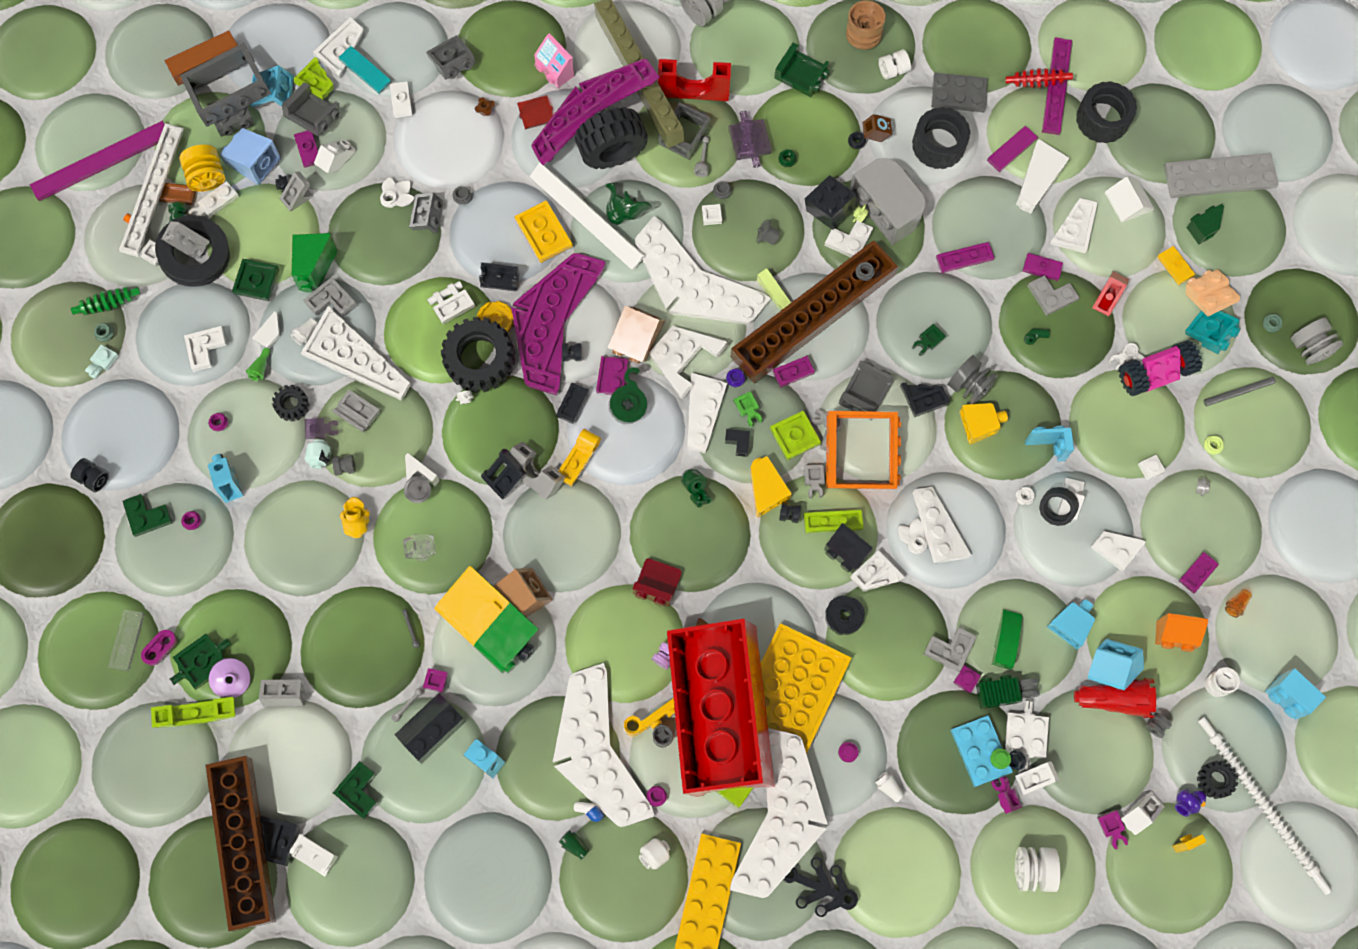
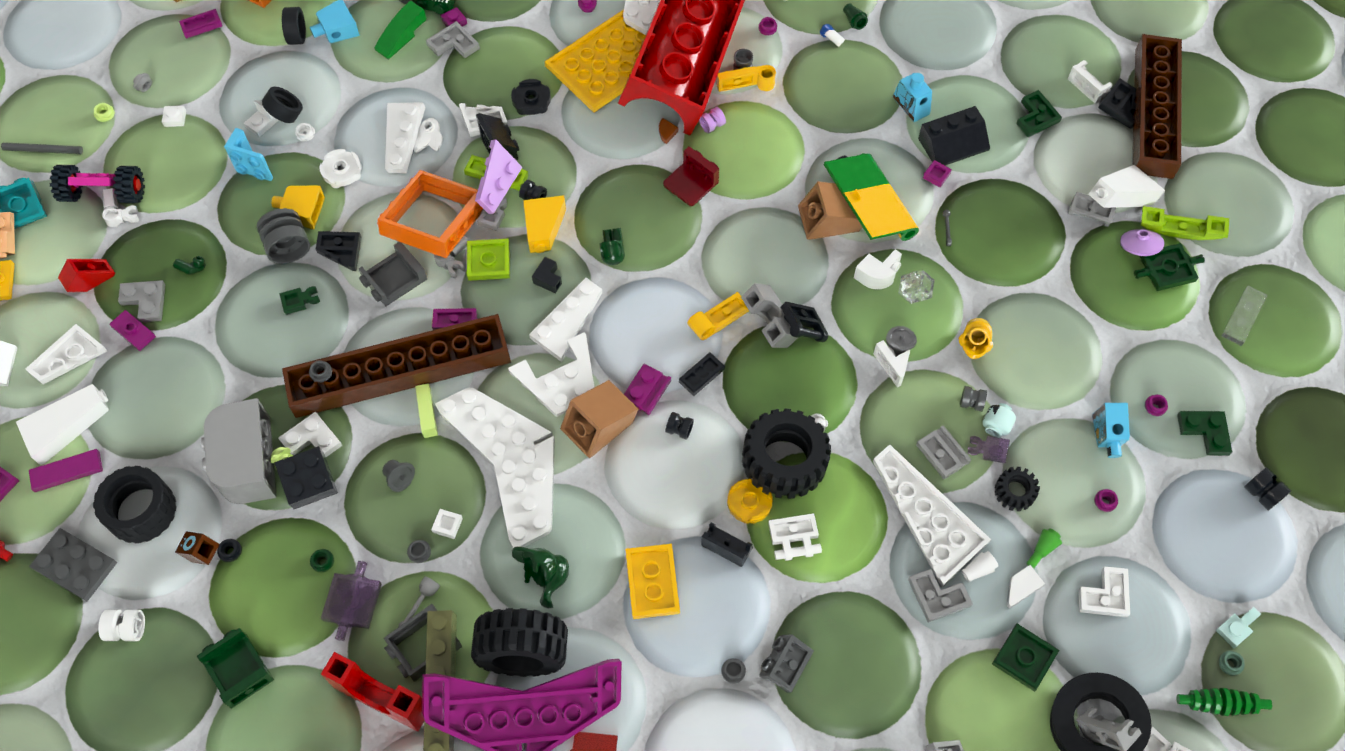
camera: 155 degrees left, 10 degrees down
(158, 646) = (1209, 294): magenta plate -> none
(254, 719) = (1126, 189): none -> white slope
(311, 259) = (951, 645): green slope -> none
(396, 717) = (984, 162): light grey hinge -> none
(398, 192) = (811, 708): white plate -> none
(455, 550) = (876, 274): none -> white brick
(548, 308) = (685, 486): magenta wing -> none
(587, 216) = (593, 581): white tile -> none
(594, 764) = (816, 78): white wing -> none
(631, 393) = (641, 348): dark green piece -> none
(735, 378) = (517, 337): dark purple plate -> none
(747, 406) = (520, 302): bright green plate -> none
(823, 504) = (498, 177): none -> lavender wing
(865, 25) = (109, 683): medium nougat wheel -> none
(964, 257) = (203, 371): magenta tile -> none
(970, 462) = (343, 177): none -> white plate
(1106, 597) = (293, 25): none -> black tyre
(1117, 548) = (254, 66): white wing -> none

